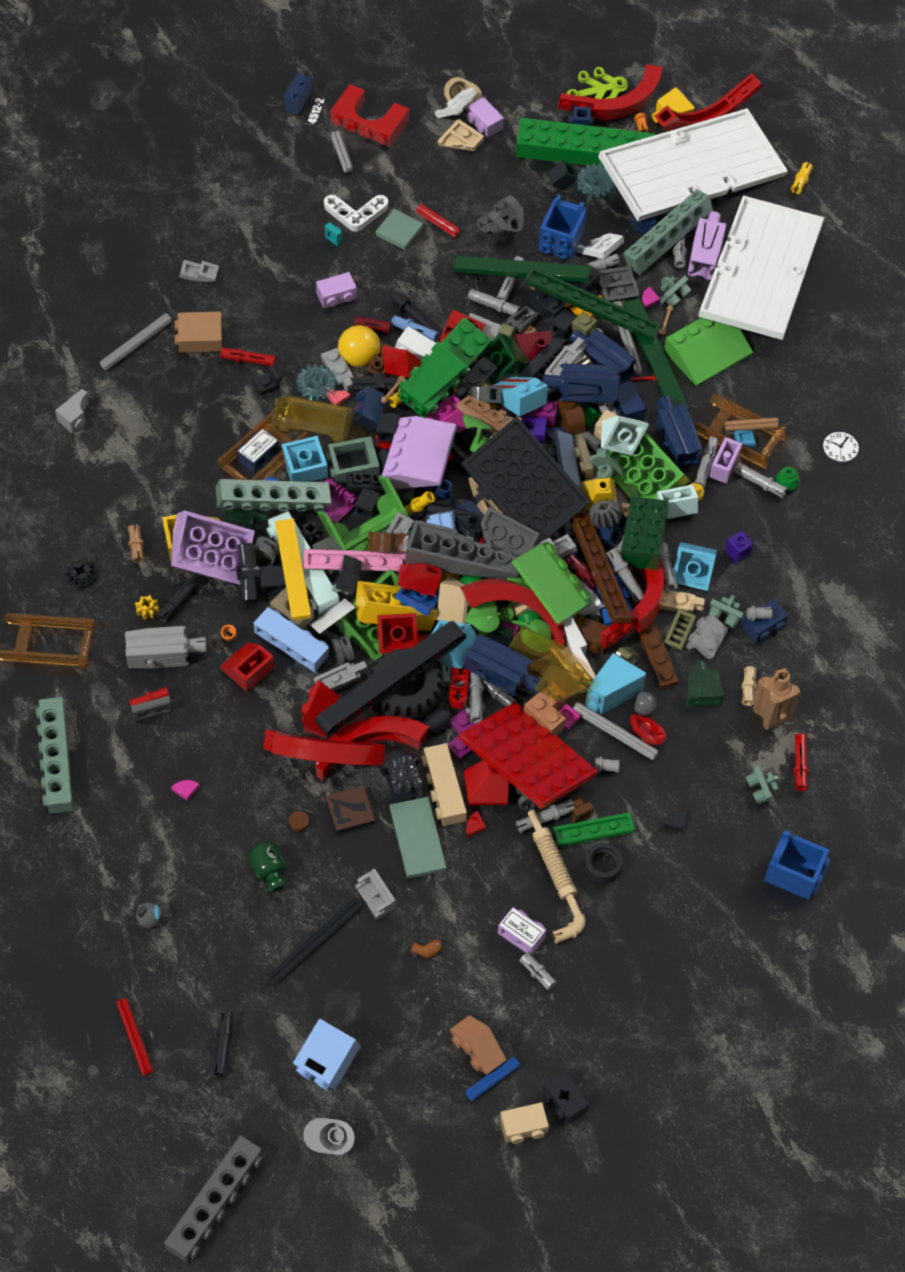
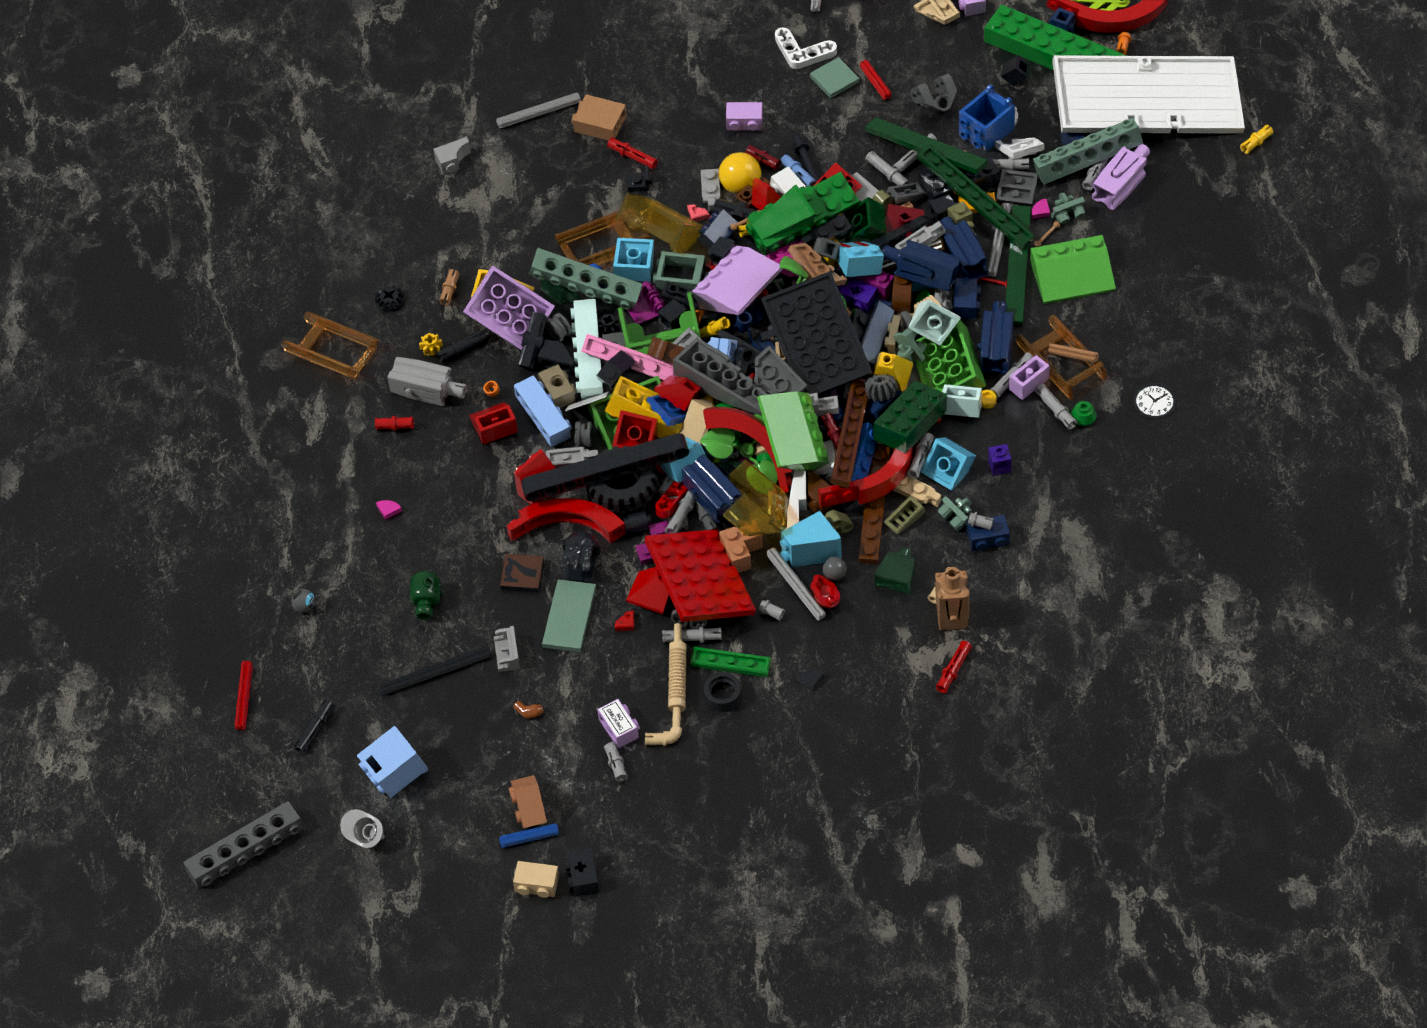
camera: 30 degrees right, 5 degrees down
(62, 800) = (290, 443): sand green brick -> none
(151, 708) = (393, 431): dark grey tile -> none
(205, 272) = (626, 64): light grey slope -> none
(258, 450) = (597, 238): brick -> none
(292, 569) = (572, 349): yellow tile -> none
(298, 821) = (472, 567): reddish brown tile -> none
(316, 381) = (682, 193): clear light blue gear -> none
(324, 750) = (522, 513): red arch -> none
(333, 234) = (769, 64): teal plate -> none
(444, 784) = (614, 579): tan brick -> none
(570, 715) = (759, 558): dark pink tile -> none
(581, 811) = (726, 641): reddish brown tile -> none
(594, 180) = (1045, 84): clear light blue gear -> none
(625, 574) = (871, 445): light grey pin -> none
(675, 101) = (1161, 37): yellow torso -> none
(707, 636) = (927, 530): light grey bracket -> none
(728, 104) = (1145, 45): red arch -> none
(745, 437) = (1063, 365): dark azure tile -> none
(761, 267) = (1163, 210): white door -> none
(764, 794) = (909, 673): sand green hips -> none
(791, 863) = (895, 750): blue container -> none

